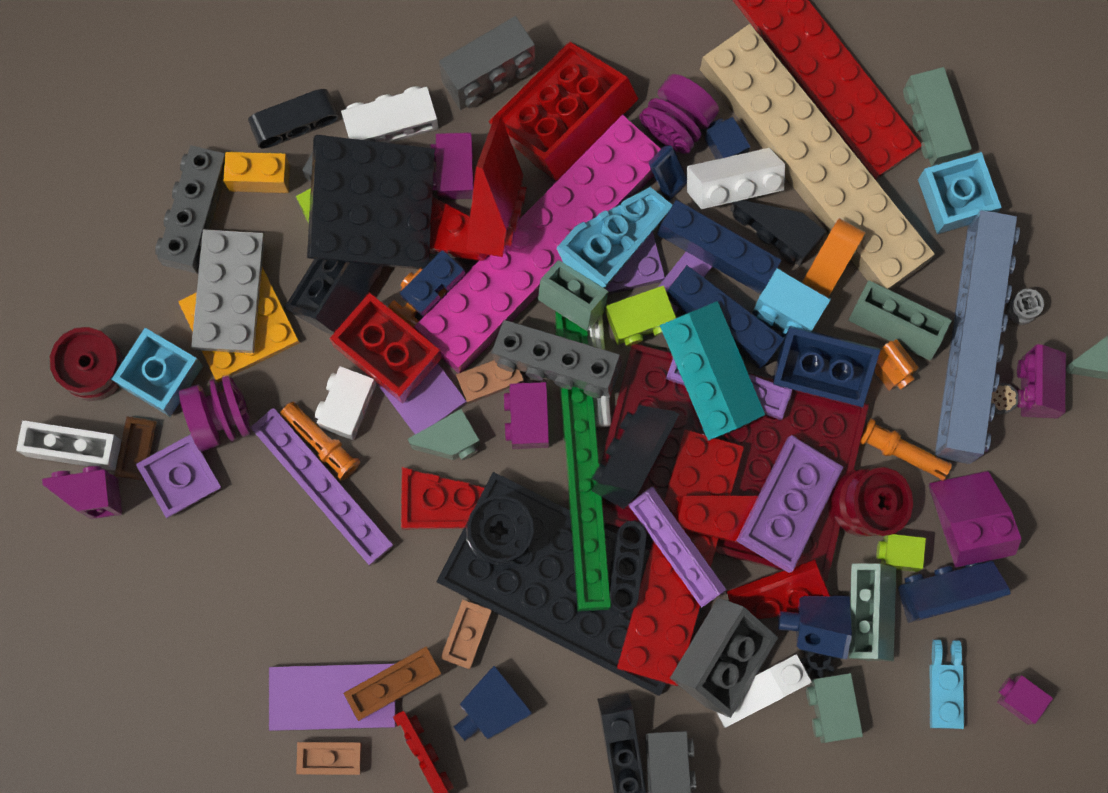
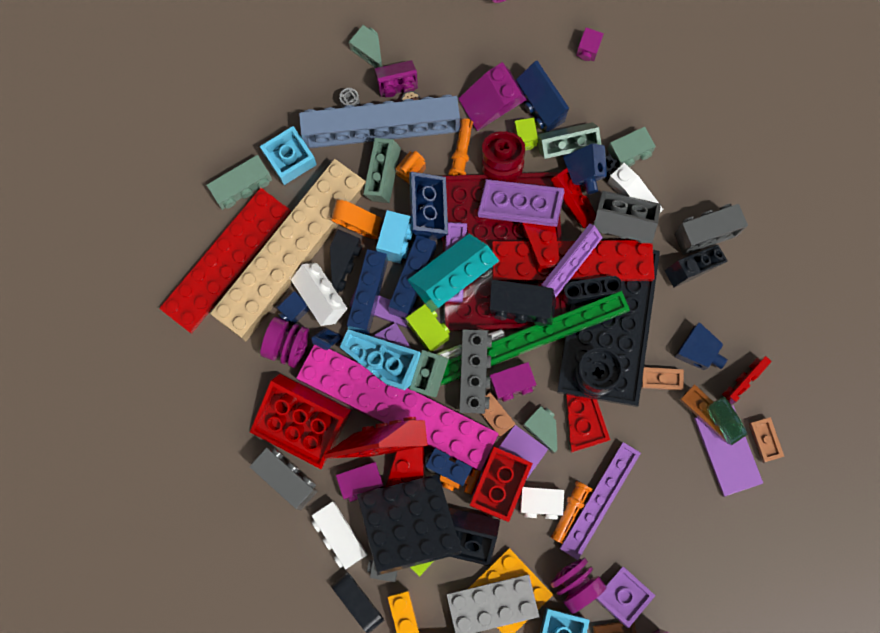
camera: 105 degrees left, 0 degrees up
(371, 698) = (728, 420): none -> clear green slope
(946, 688) = (596, 90): medium azure hinge -> none

